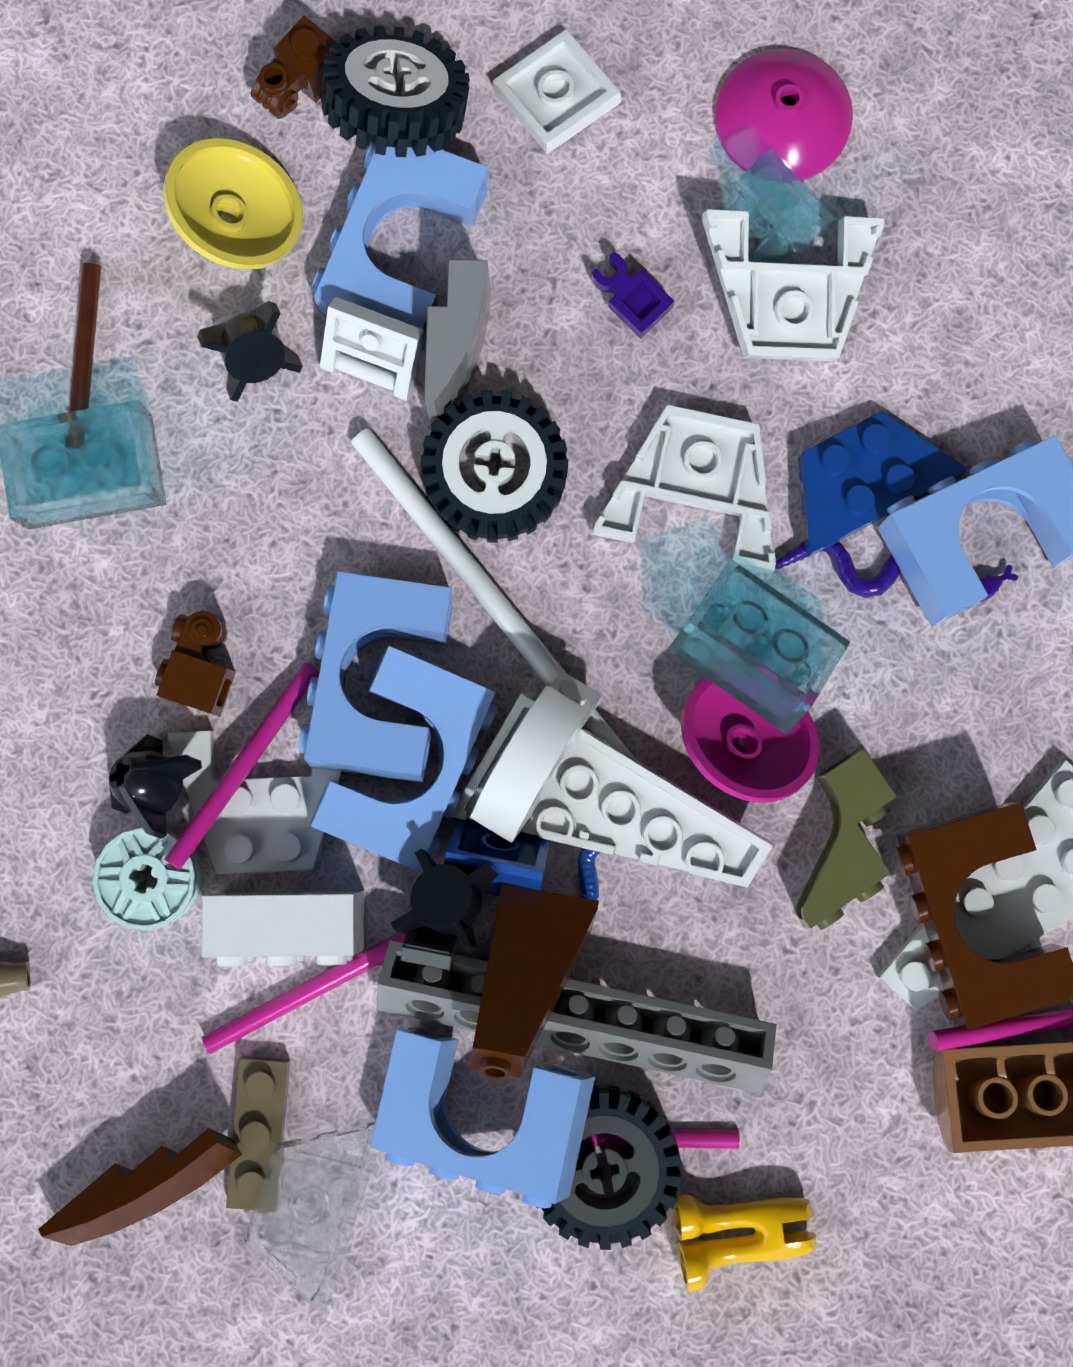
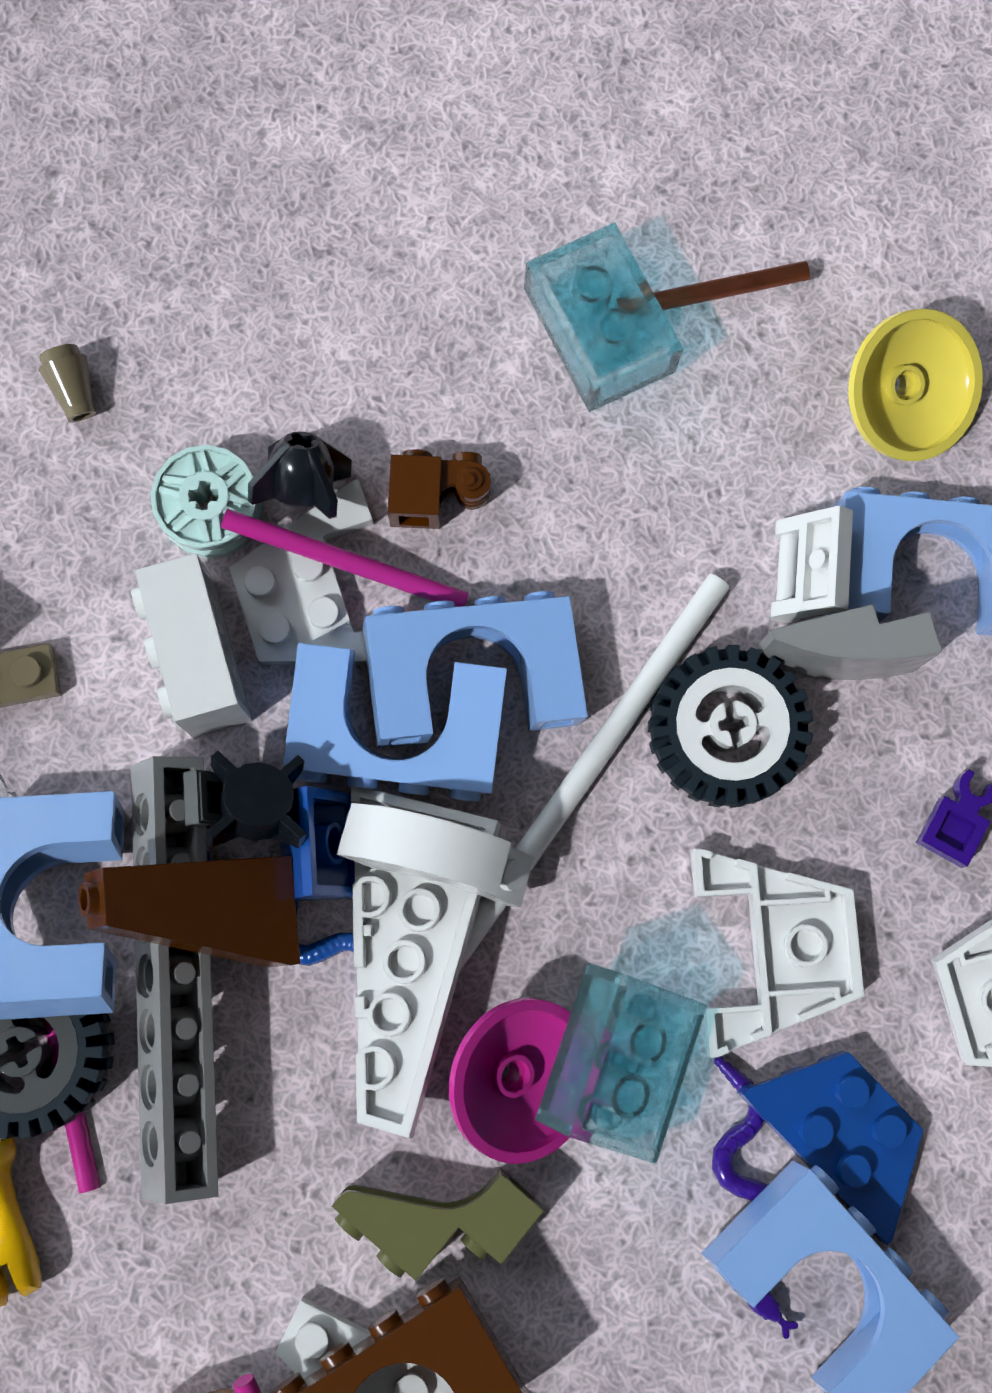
camera: 65 degrees right, 5 degrees down
(250, 348) = (773, 444): black piece -> none
(298, 996) = (125, 683): dark pink piece -> none

